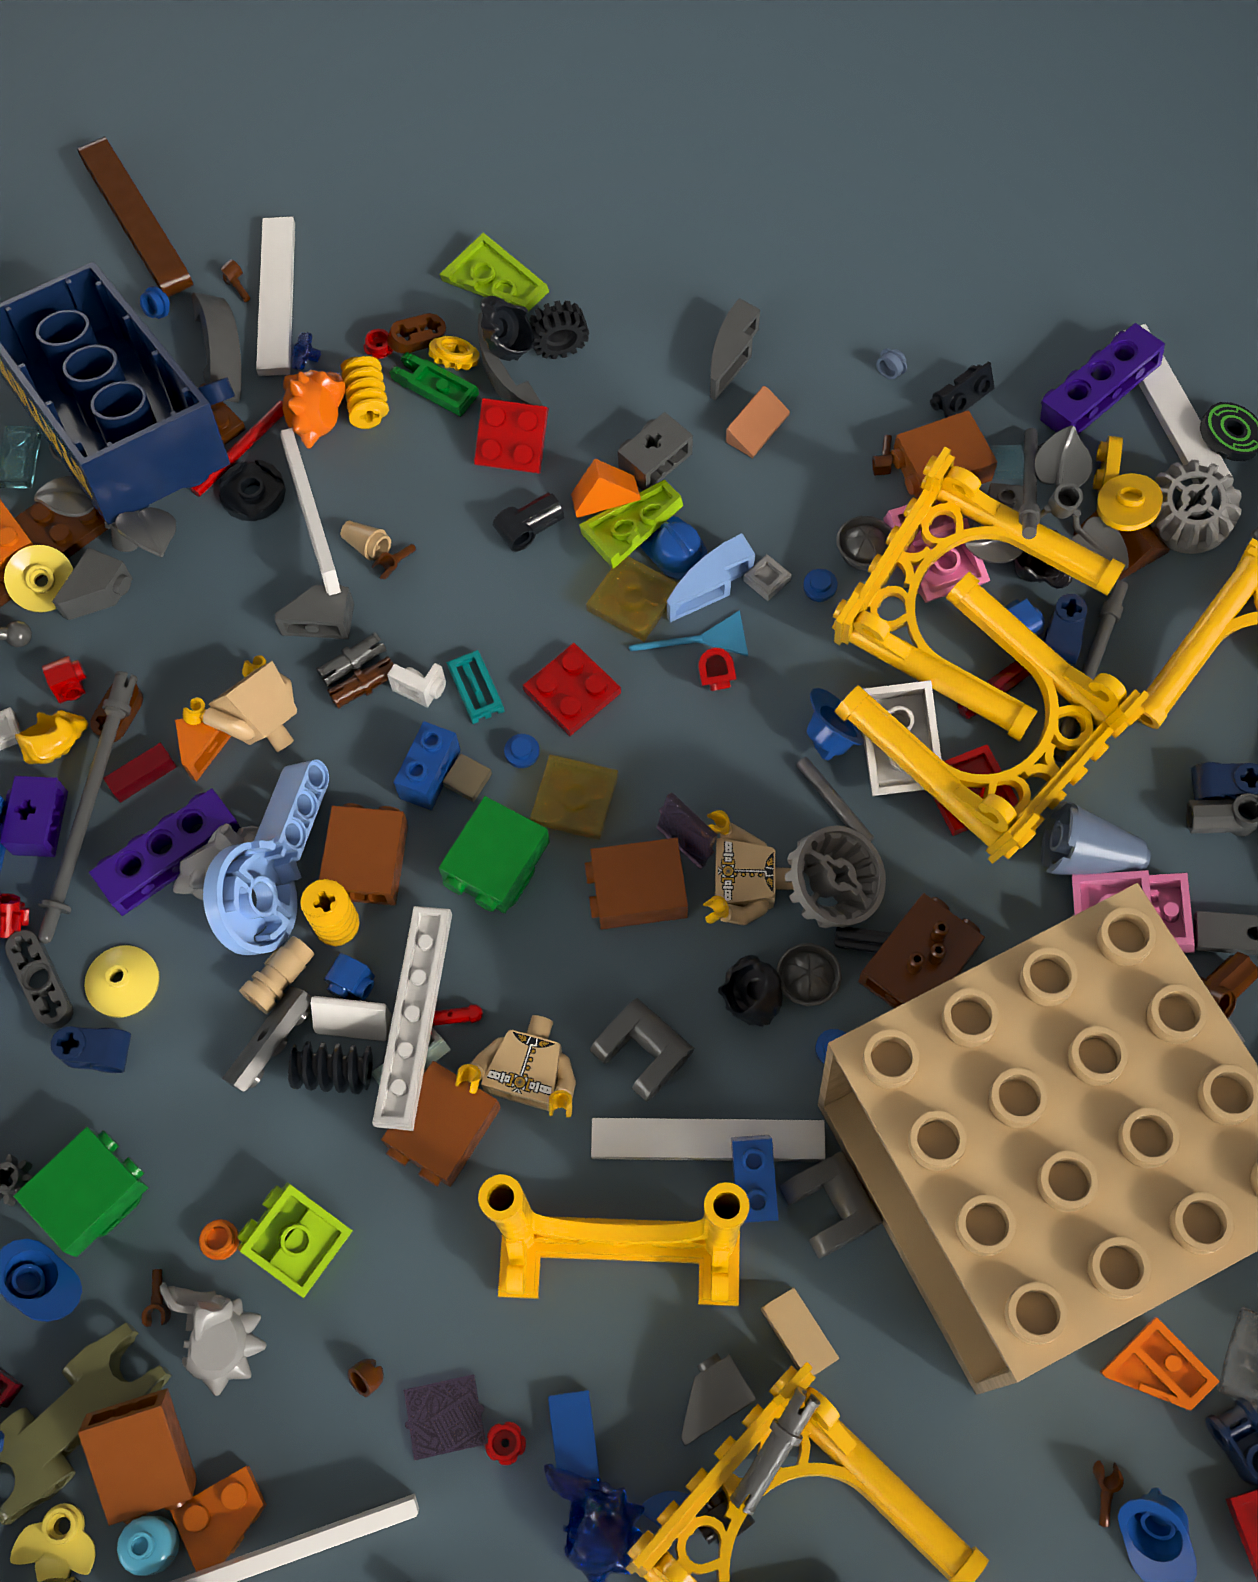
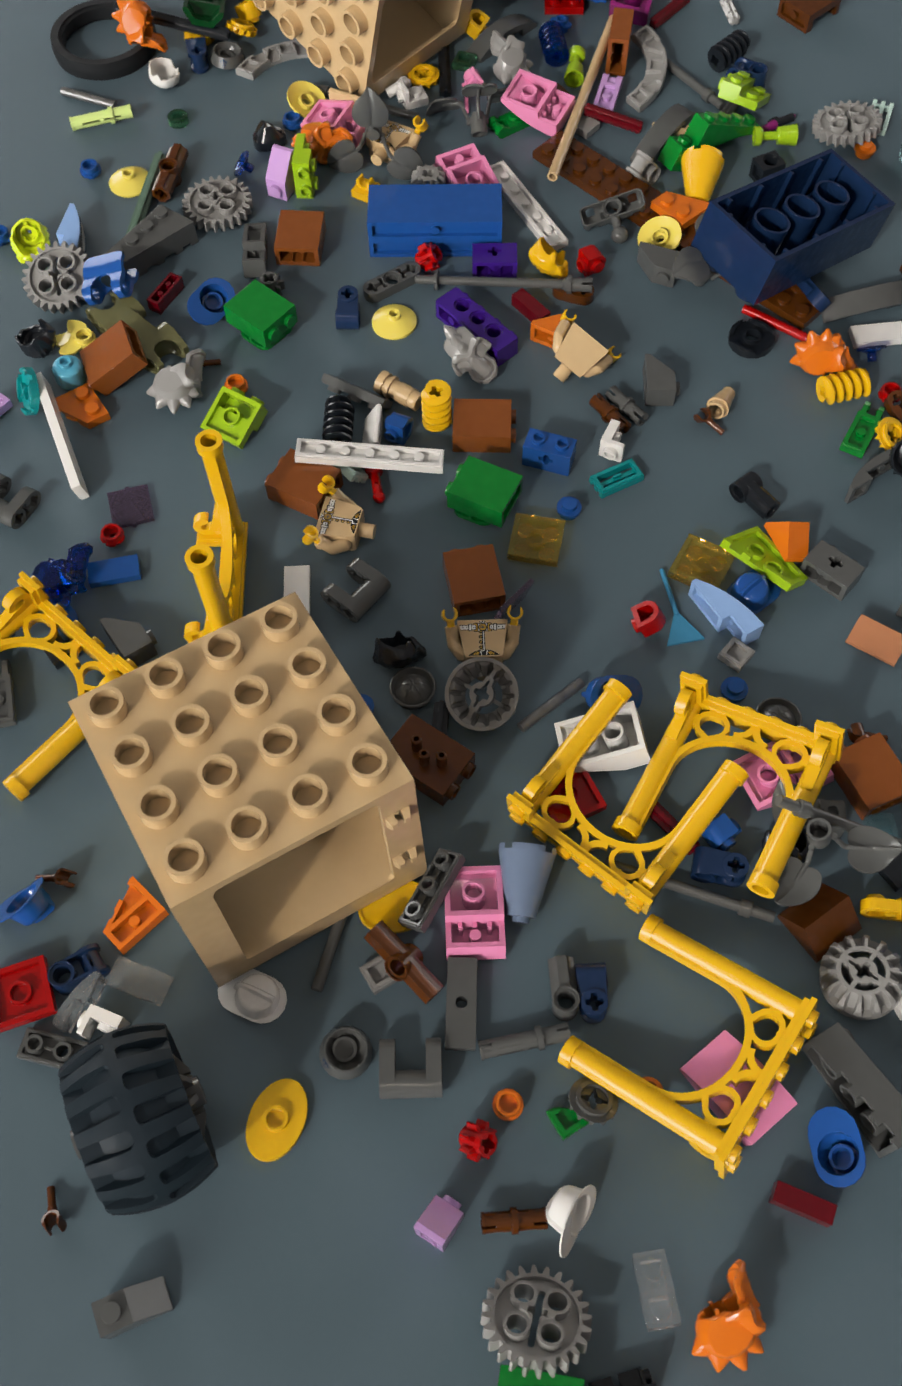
camera: 85 degrees right, 5 degrees down
(155, 303) = (891, 263): blue plate -> none
(266, 867) = (464, 365): light blue beam -> none
(310, 512) = (732, 362): white tile -> none
(365, 1376) = (154, 463): reddish brown hinge -> none
(467, 778) = (545, 479): dark tan tile -> none
(511, 435) = (824, 476): red plate -> none
(572, 689) = (622, 534): red plate -> none
(784, 1435) = (92, 658): dark grey pin -> none
(1129, 502) = (844, 908): yellow piece -> none

